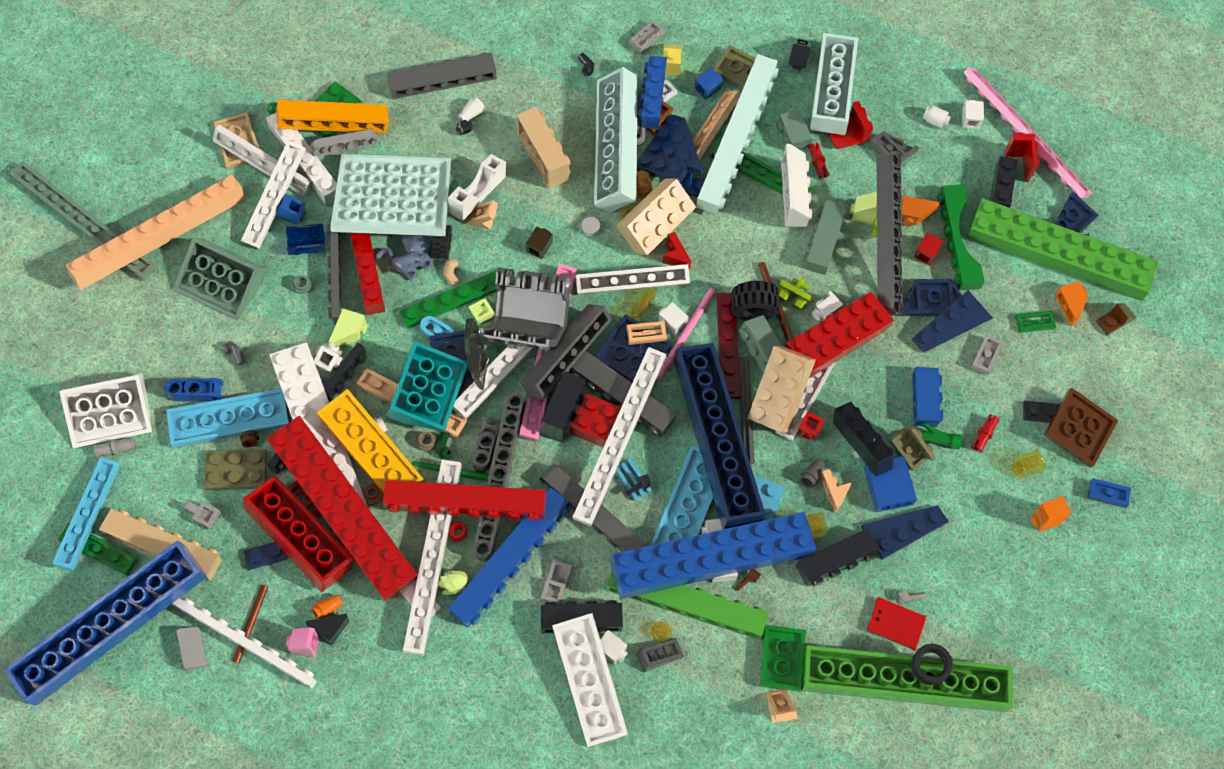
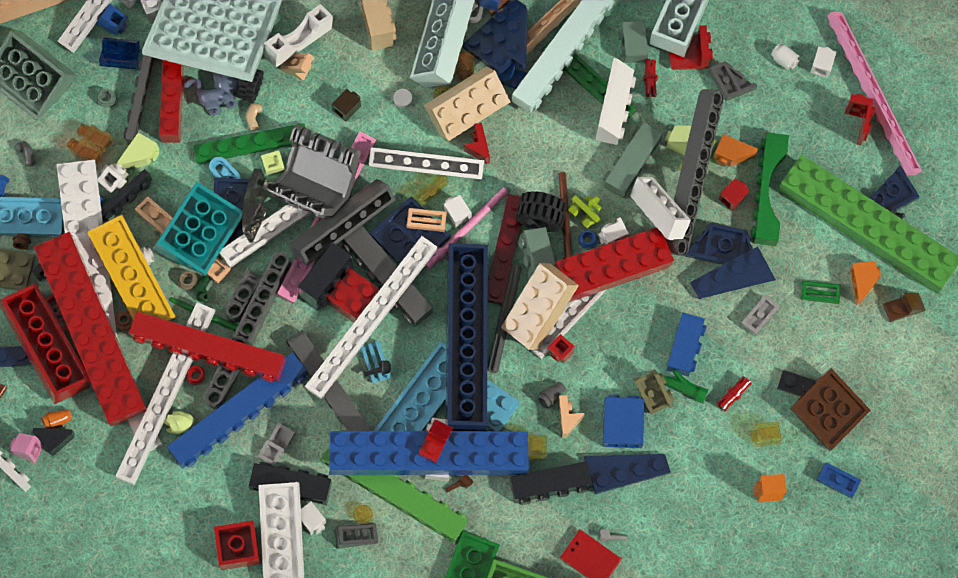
camera: 15 degrees right, 5 degrees up
(299, 329) = (92, 144): none -> clear orange hips
(544, 692) = (236, 545): none -> red brick
(719, 540) = (435, 441): none -> red slope
(804, 314) = (587, 233): none -> blue plate
(863, 438) = (607, 372): black brick -> none
(868, 273) = (660, 208): none -> white brick
(1004, 181) = (831, 141): black brick -> none

